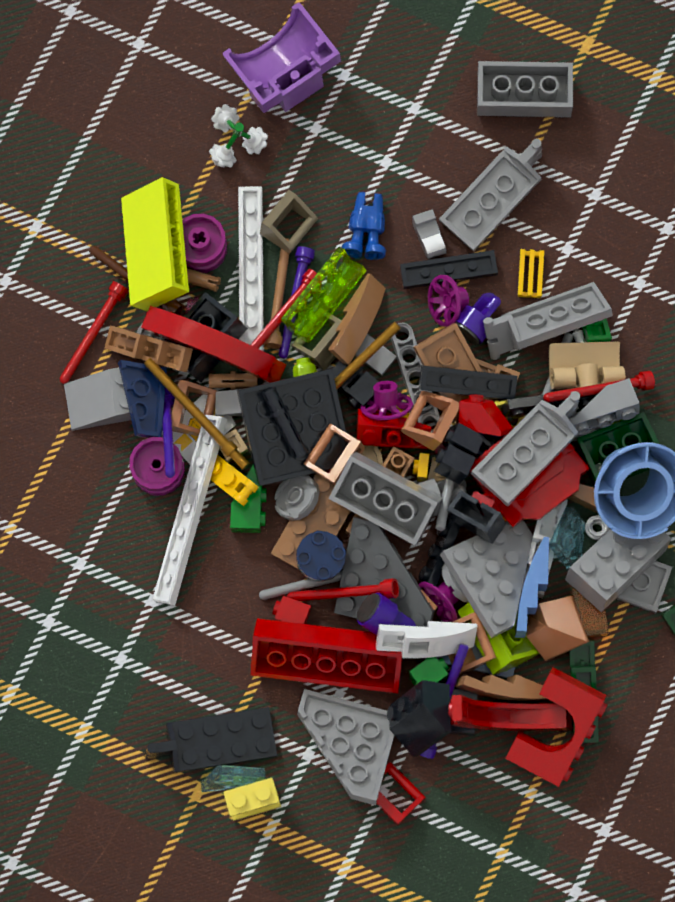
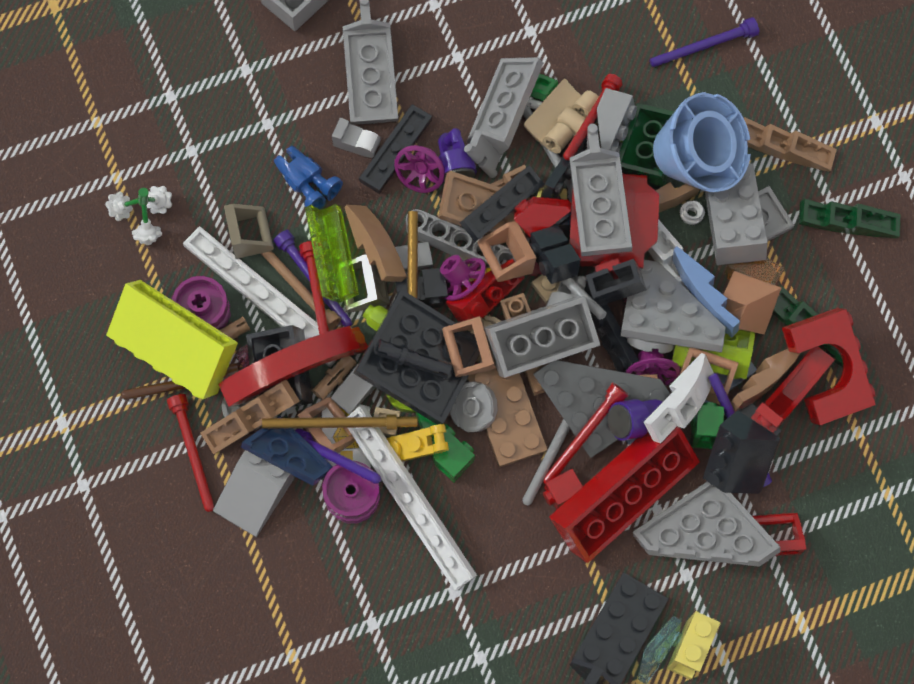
camera: 55 degrees left, 5 degrees down
(288, 64) = (123, 119): medium lavender piece -> none
(320, 556) = (540, 426): dark blue brick -> none
(421, 467) = (534, 295): yellow plate -> none
(531, 254) = (439, 82): yellow tile -> none
(568, 537) = (686, 238): clear light blue wing -> none

